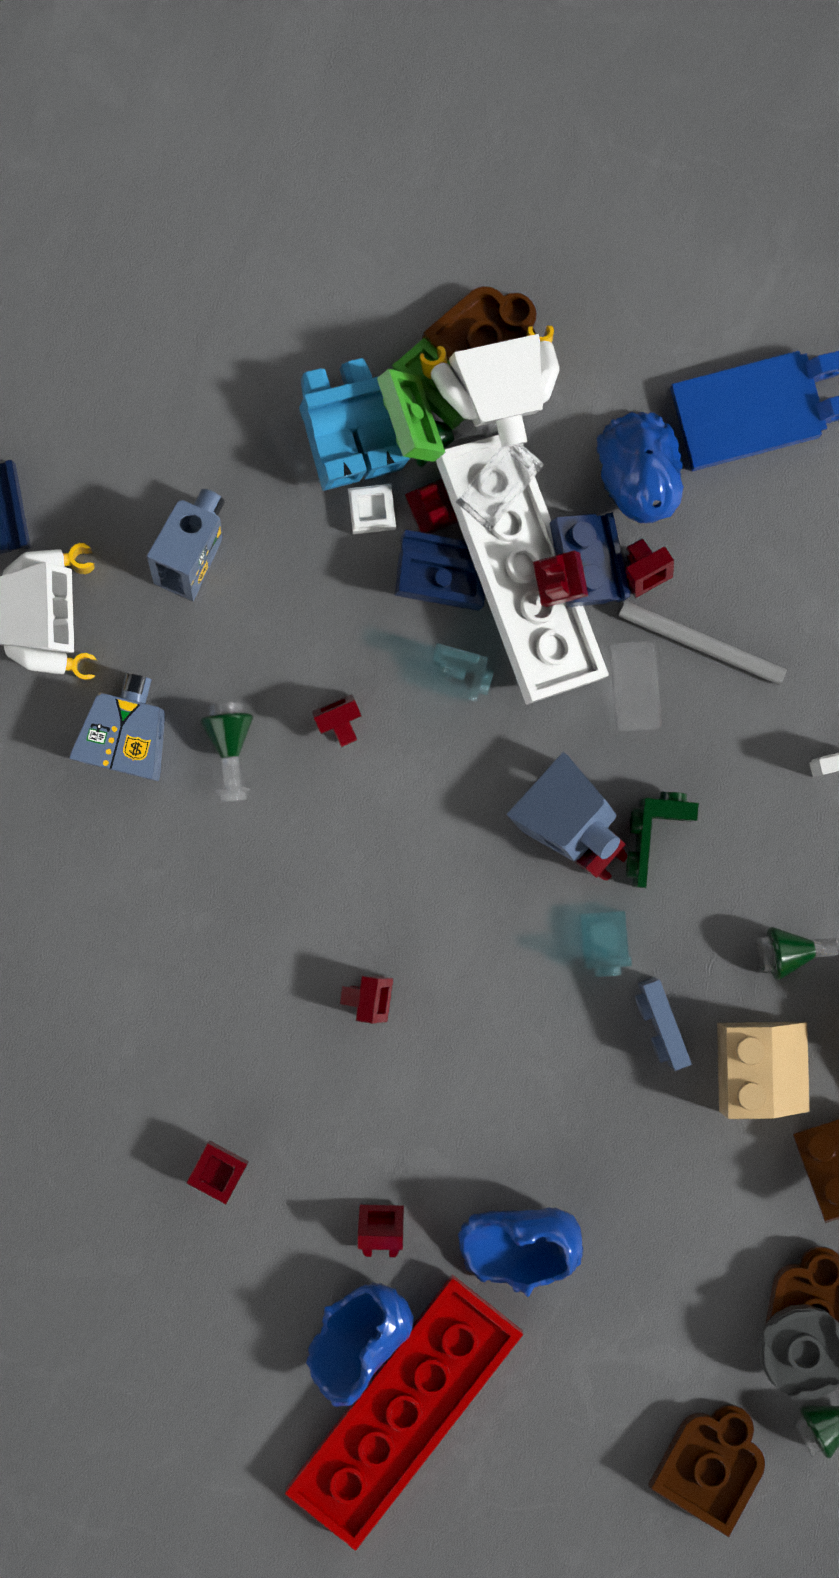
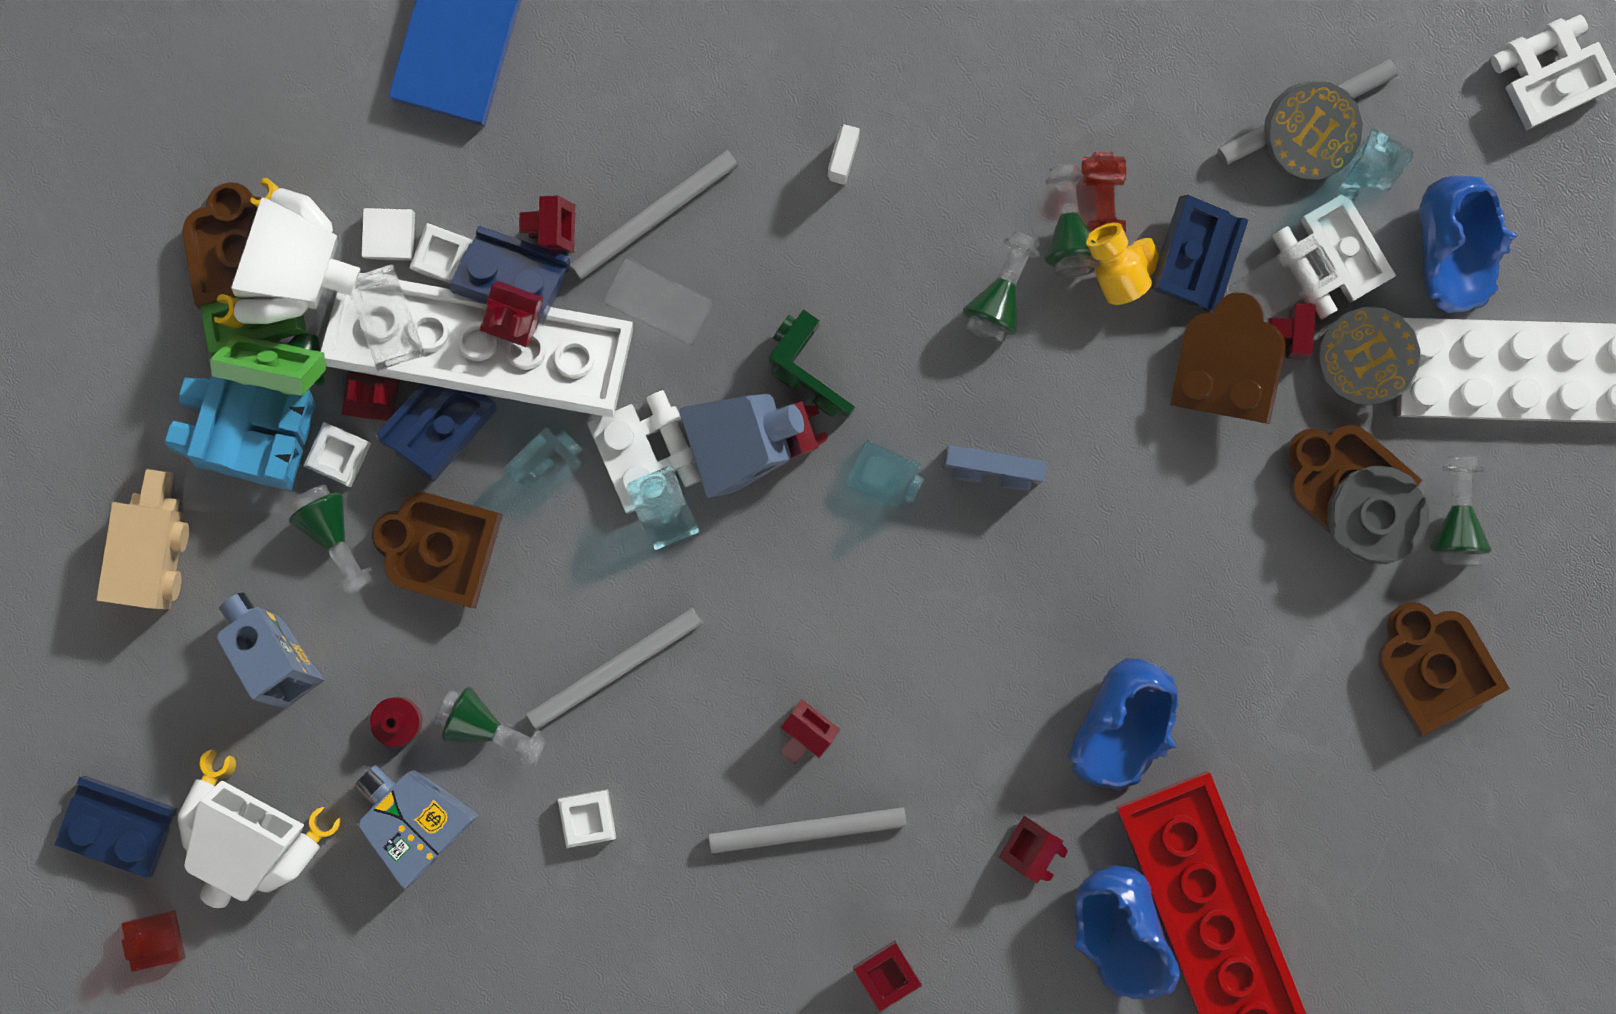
camera: 65 degrees left, 0 degrees up
(201, 682) = (407, 719): none -> dark red tile
(204, 866) = (587, 818): none -> white tile
(215, 405) = (144, 547): none -> tan hinge
(294, 1043) = (807, 830): none -> light grey bar
(315, 527) = (322, 519): none -> piece
(332, 819) = (614, 668): none -> light grey bar
(338, 717) = (518, 605): dark red tile -> none
(346, 628) = (438, 547): none -> reddish brown plate
(478, 783) = (662, 507): none -> clear light blue bracket
(503, 734) = (629, 453): none -> white plate
(564, 447) = (388, 234): none -> white tile
(573, 495) = (439, 253): none -> white tile
(641, 466) = (450, 172): blue piece -> none
(763, 1069) = (1092, 396): tan slope -> none

